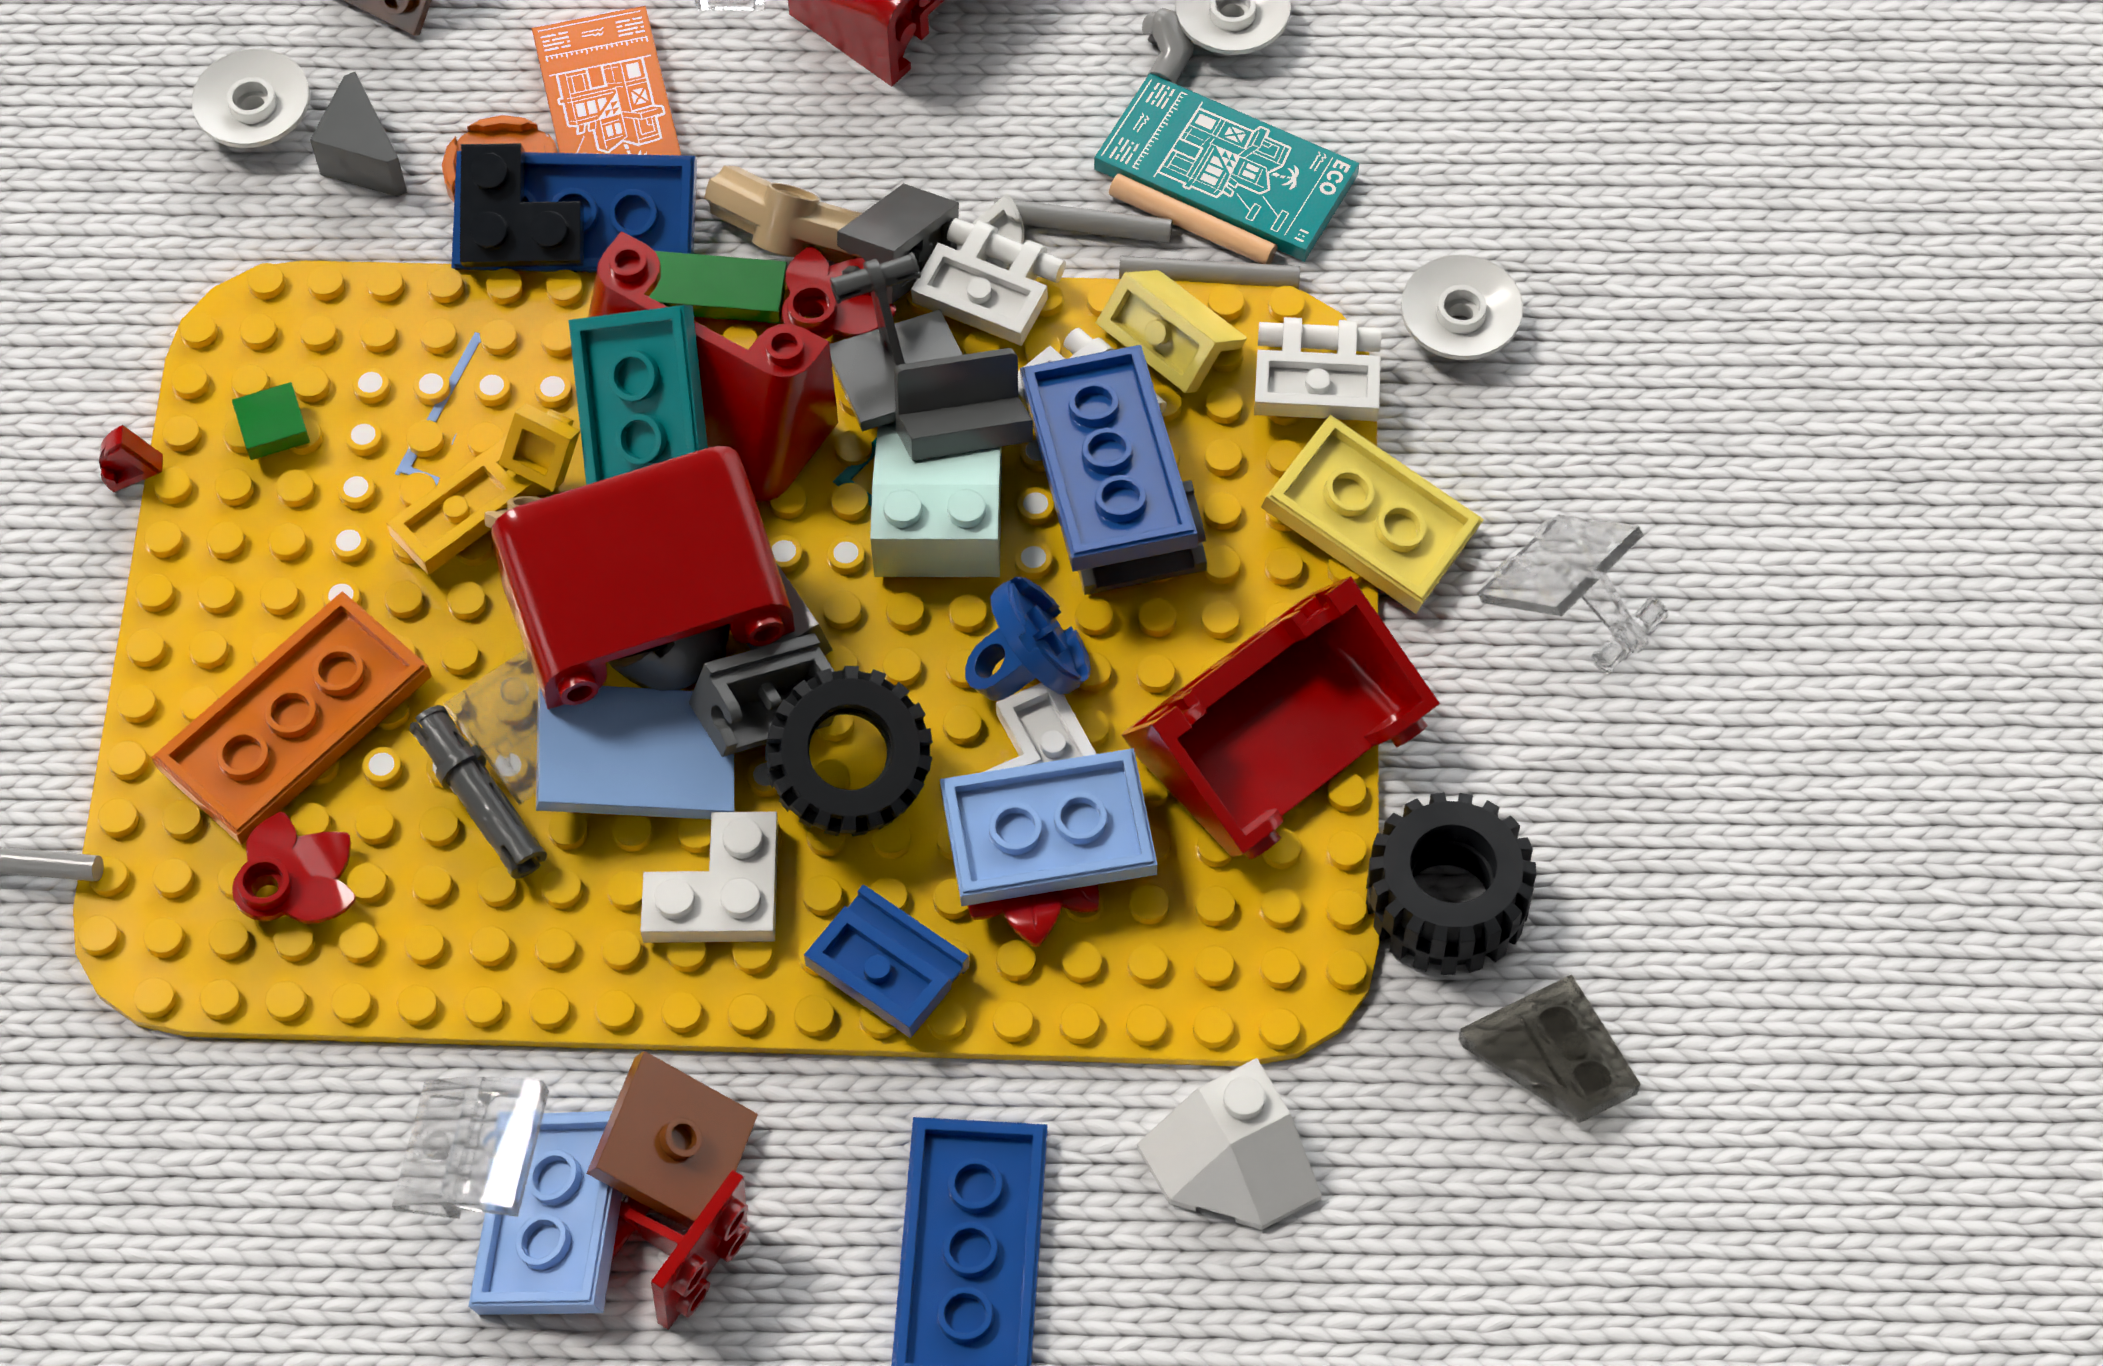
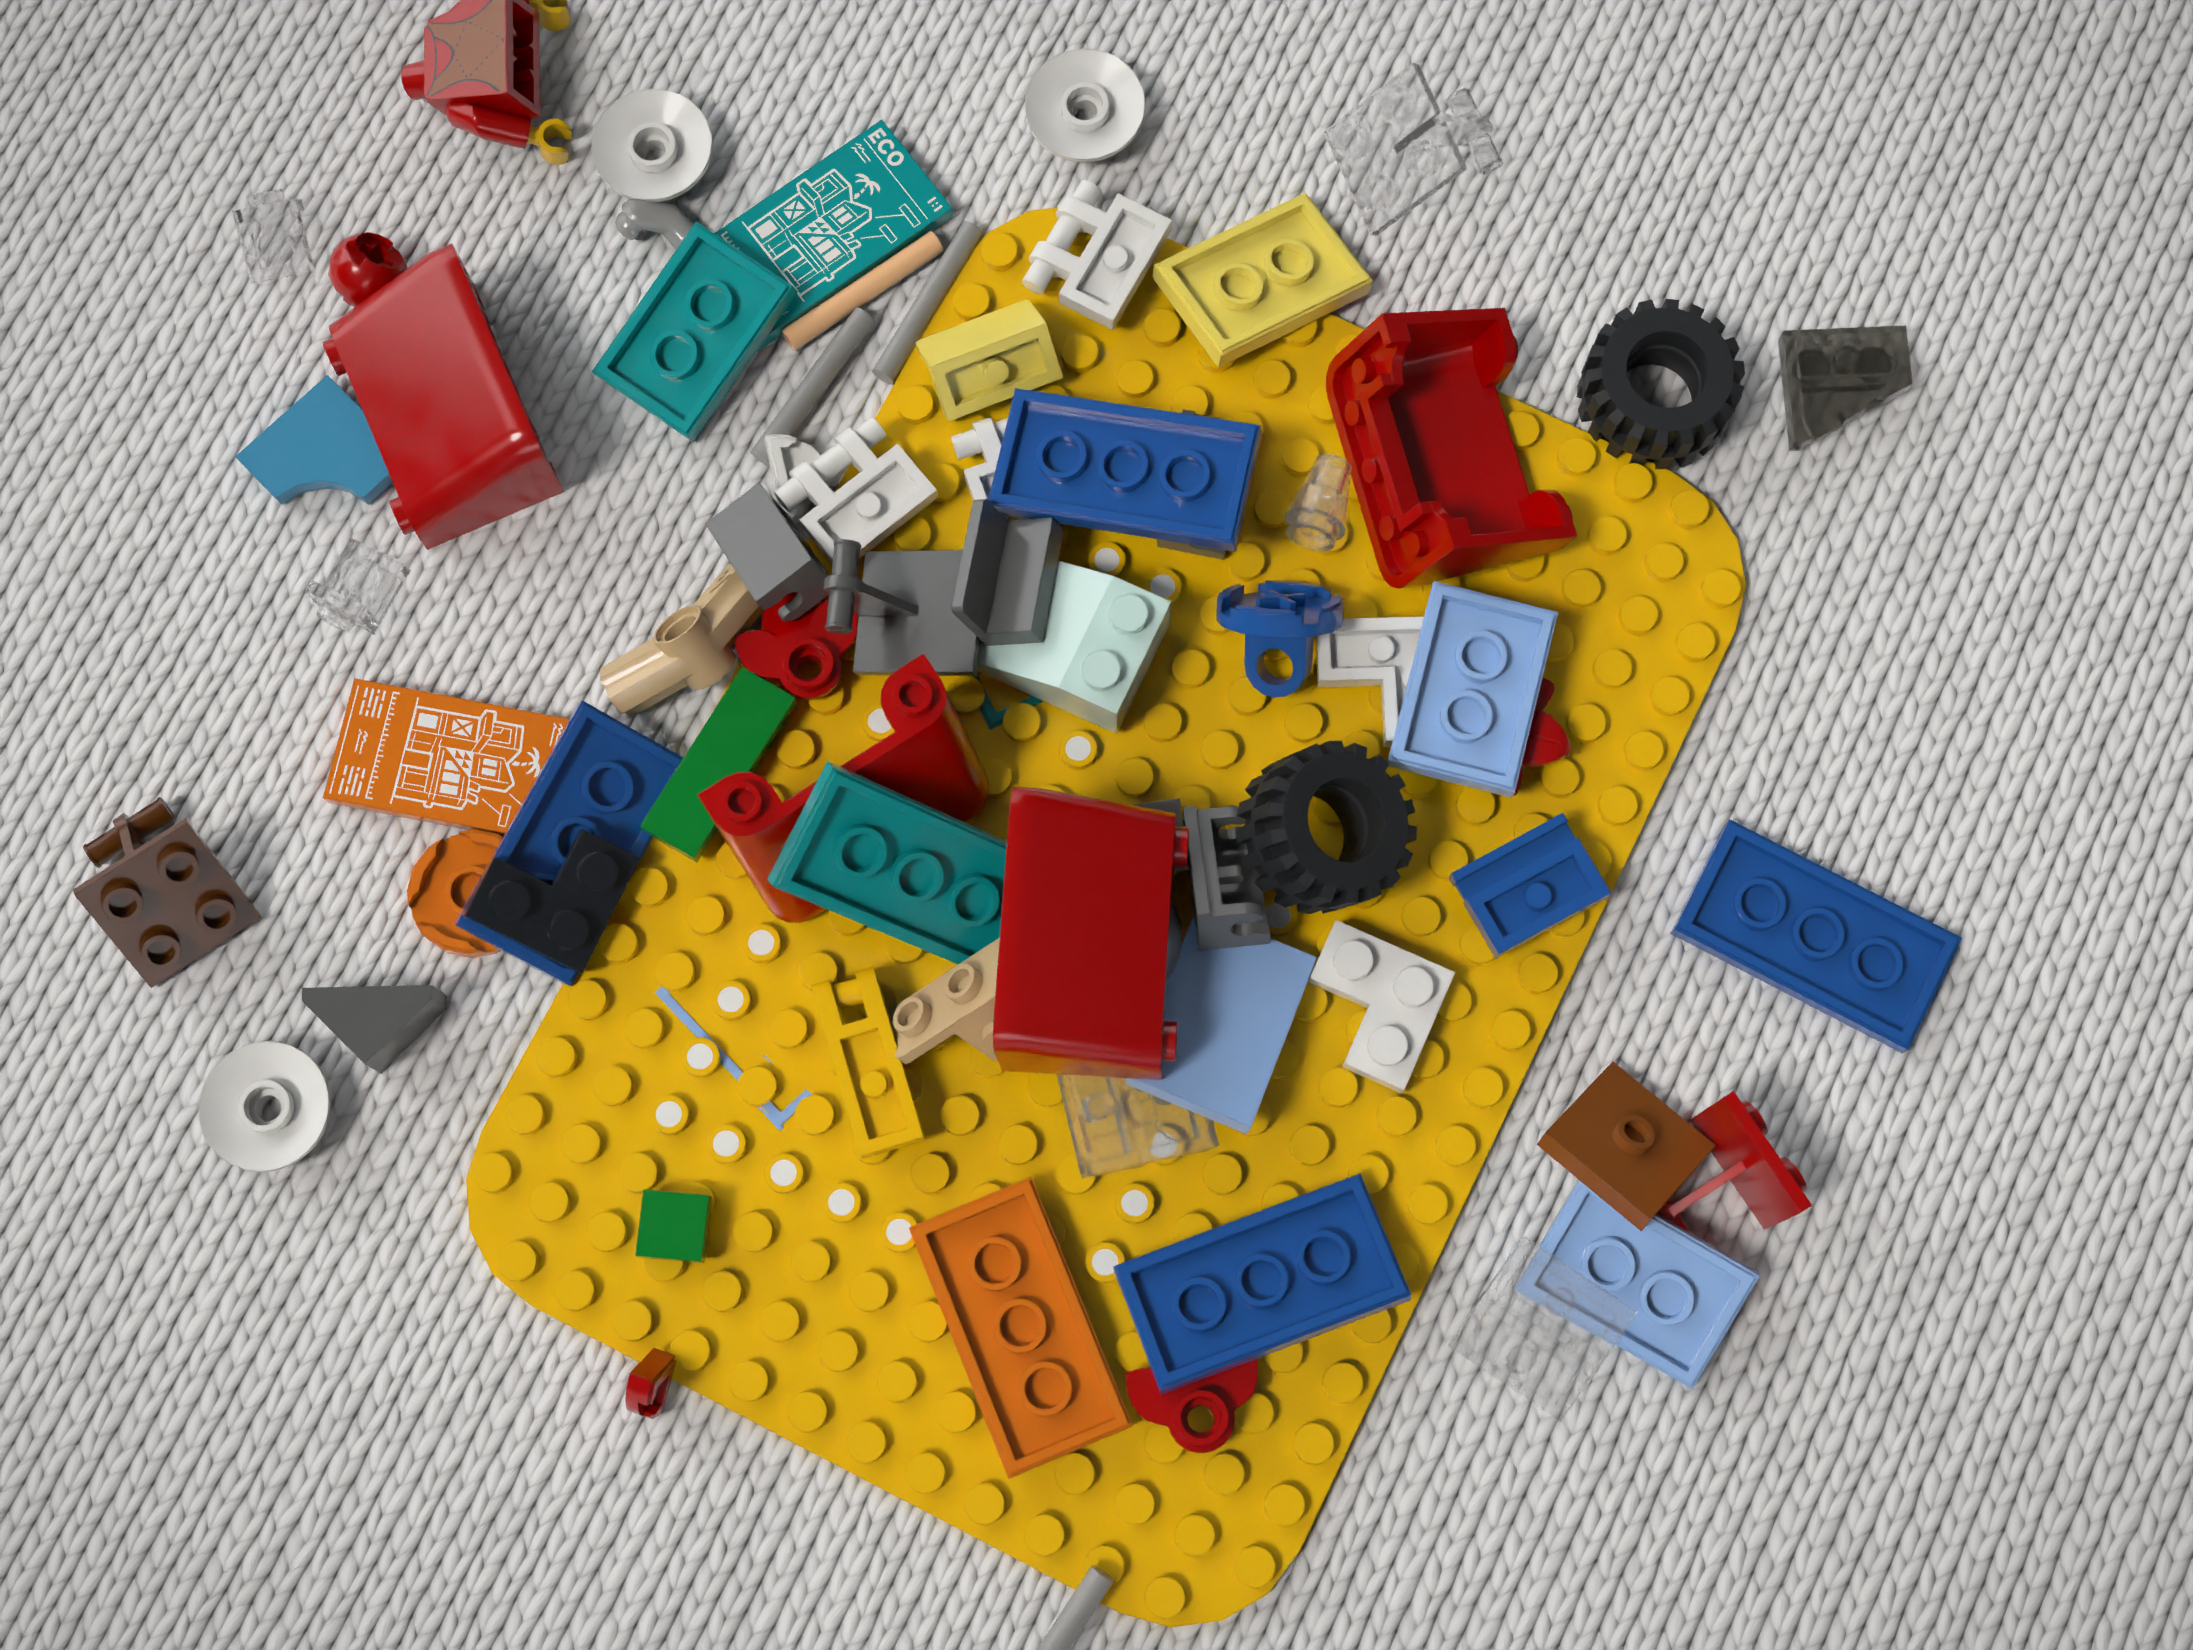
camera: 65 degrees left, 15 degrees up
(409, 887) = (1261, 1284): none -> blue tile
(465, 773) = (1191, 1181): dark grey pin -> none
(540, 446) = (862, 973): yellow tile -> none
(1079, 108) = (694, 331): none -> teal tile
(1172, 641) = (1320, 505): none -> clear cone
(1232, 1151) = (1819, 678): white slope -> none

